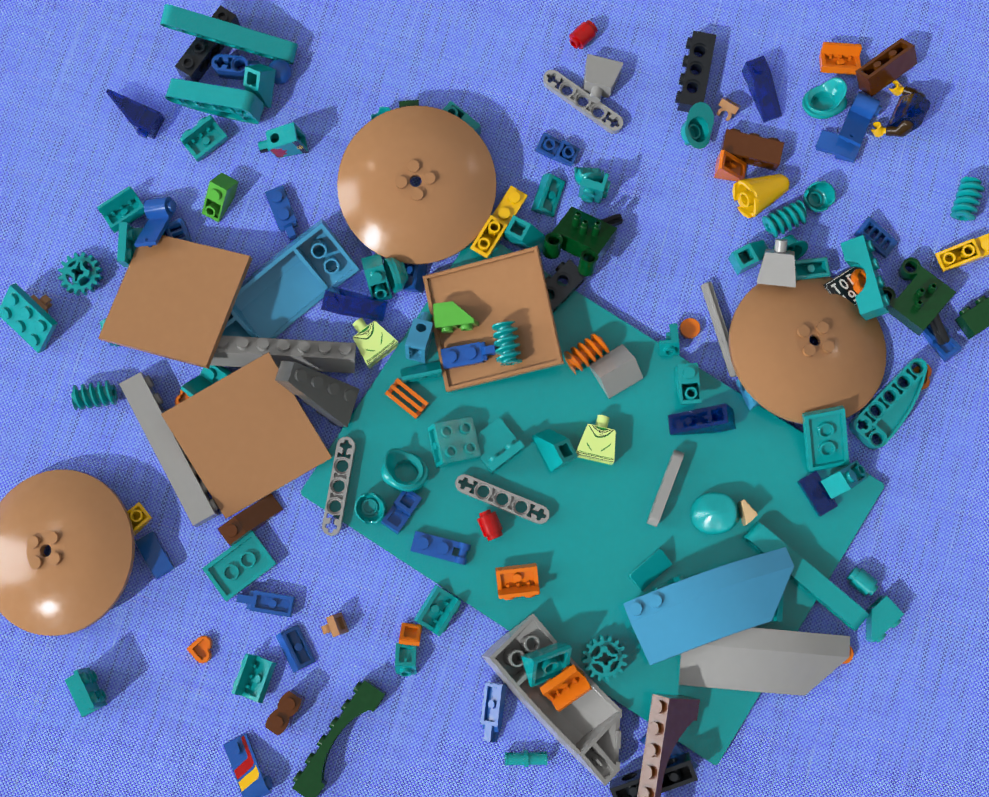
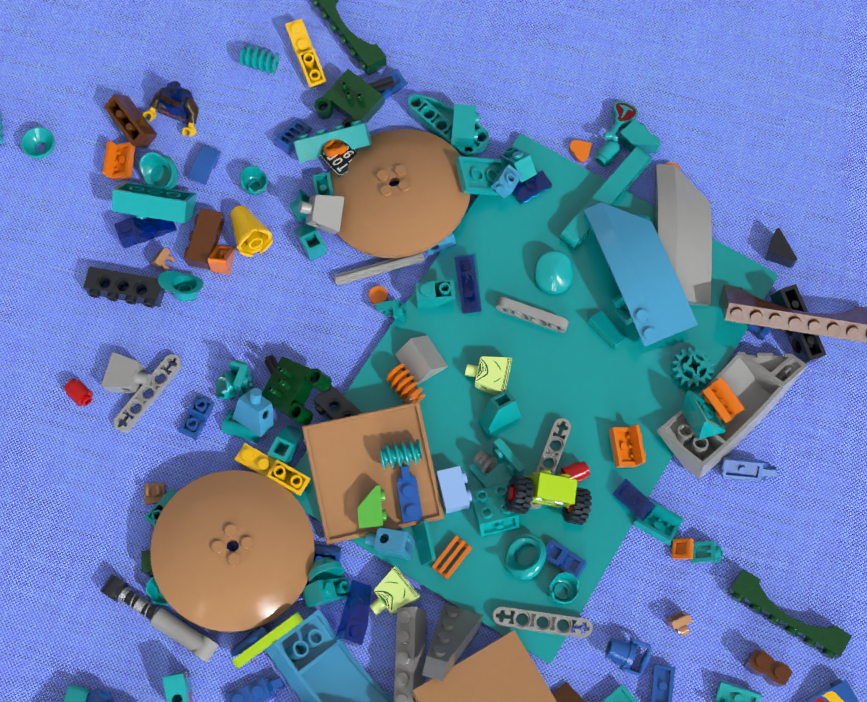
camera: 90 degrees left, 10 degrees down
(295, 648) = (704, 663): blue slope -> none
(307, 567) = (624, 653): none -> blue piece
(327, 219) = (267, 640): none -> lime beam
(329, 160) = (161, 619): none -> piece
(331, 208) = (251, 639): none -> blue slope
(439, 547) = (598, 522): blue plate -> none
(460, 585) = (634, 499): none -> clear blue plate
(466, 493) = (550, 491): none -> brick
(475, 400) = (453, 489): none -> light blue brick
(480, 112) = (154, 492): none -> medium nougat tile
(501, 432) = (485, 461): none -> dark grey piece
(525, 758) = (788, 439): teal pin -> none
(560, 199) = (254, 412): none -> dark azure torso
(745, 770) = (780, 250): none -> black slope
(746, 512) = (554, 243): tan slope -> none
(784, 218) = (274, 209): teal piece -> none
(789, 94) = (153, 202): none -> teal brick
(819, 463) = (506, 181): none -> dark azure brick
(858, 118) = (173, 145): blue door -> none
(866, 552) = (580, 149): none -> orange tile
(887, 417) = (464, 125): none -> teal brick
(912, 604) = (624, 114): none -> teal piece

